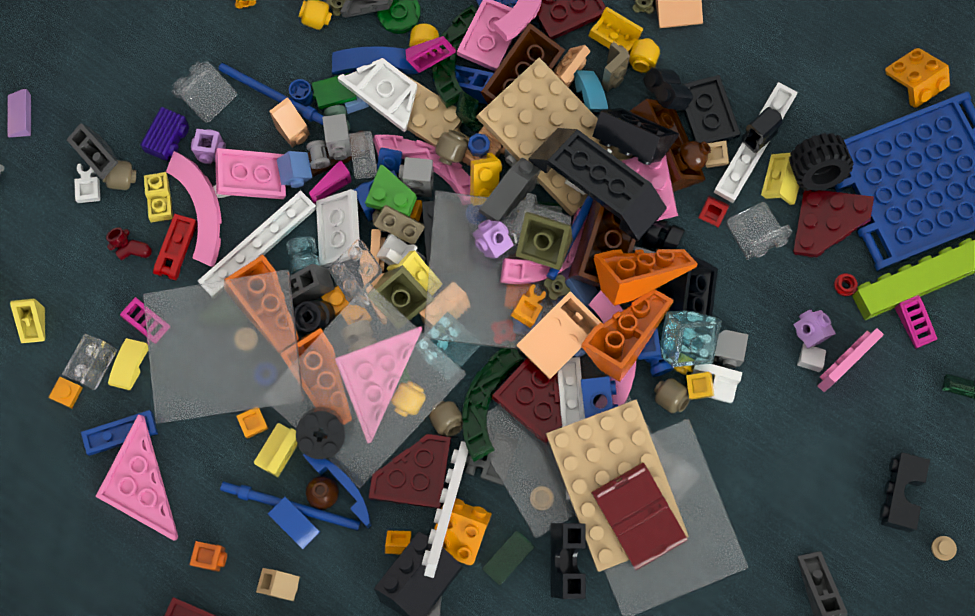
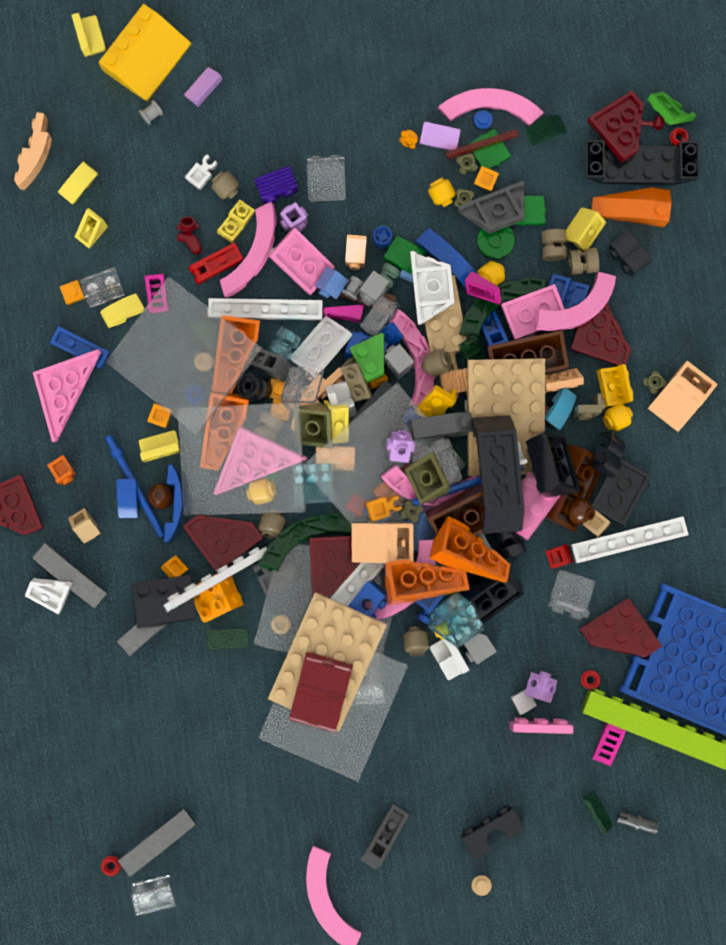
camera: 45 degrees right, 10 degrees up
(93, 150) = (222, 157): dark grey slope -> none
(307, 112) = (373, 255): blue bar -> none
(311, 422) = (178, 466): black brick -> none
(479, 145) = (454, 378): blue tile -> none
(566, 578) = (246, 684): black arch -> none
(700, 385) = (436, 653): yellow tile -> none
(762, 129) = (636, 538): black brick -> none
(780, 179) = (622, 578): light yellow panel -> none
(821, 162) = (650, 593): black tyre -> none

